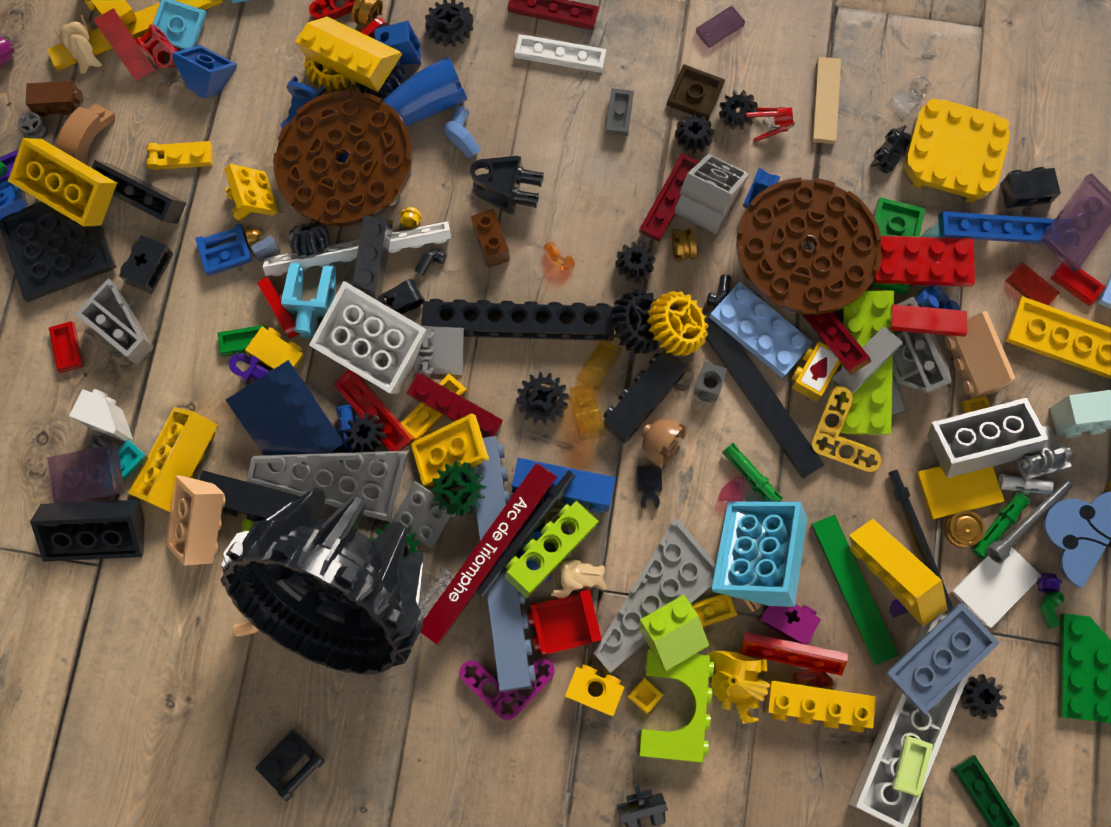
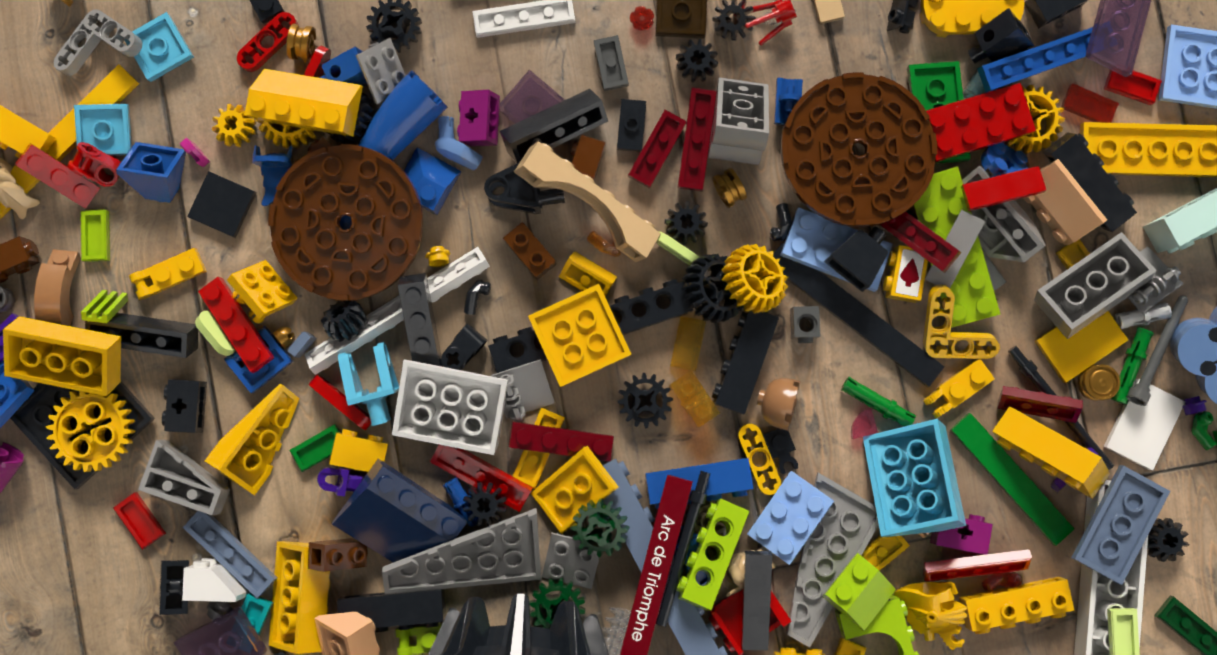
camera: 25 degrees left, 10 degrees up
(58, 252) = (99, 450): none -> yellow gear
(59, 418) = (172, 587): none -> black brick
(114, 159) = (100, 305): none -> lime tile
(129, 400) = (230, 553): none -> sand blue plate
(134, 106) = (95, 236): none -> lime tile
(186, 317) = (250, 446): none -> yellow wedge
(198, 214) = (213, 333): none -> yellowish green tile
(217, 213) = (236, 324): none -> red plate
(219, 430) = (337, 555): none -> reddish brown brick
(243, 65) = (191, 148): none -> dark pink tile
(248, 116) = (221, 204): none -> black tile
(284, 57) = (225, 129): none -> yellow gear
(422, 47) = (381, 68): none -> light grey hinge
(430, 155) = (431, 179): none -> blue slope
(490, 117) = (478, 118): none -> magenta brick
(505, 318) = (579, 335): none -> yellow plate
(529, 168) = (546, 169): none -> tan arch
(532, 278) = (584, 274): none -> yellow slope
(539, 124) = (528, 98): none -> clear purple tile
(551, 142) = (555, 124): none -> black brick
(565, 185) = (587, 155): none -> reddish brown brick
(575, 607) = (756, 600): none -> black tile
(616, 277) = (676, 248): none -> yellowish green tile
(618, 168) = (631, 125): none -> black plate
(618, 469) = (769, 461): none -> yellow beam
(633, 193) = (657, 149): none -> dark red plate
(635, 547) = (790, 517): none -> light blue plate
(659, 92) = (642, 24): none -> clear red plate
(777, 337) = (860, 258): none -> black torso
(834, 488) = (960, 386): none -> yellow hinge
(903, 527) = (1040, 404): none -> dark red plate
(969, 196) = (1001, 38): none -> black torso
(987, 273) = (1048, 112): none -> yellow gear
(1016, 346) = (1093, 179): none -> black brick

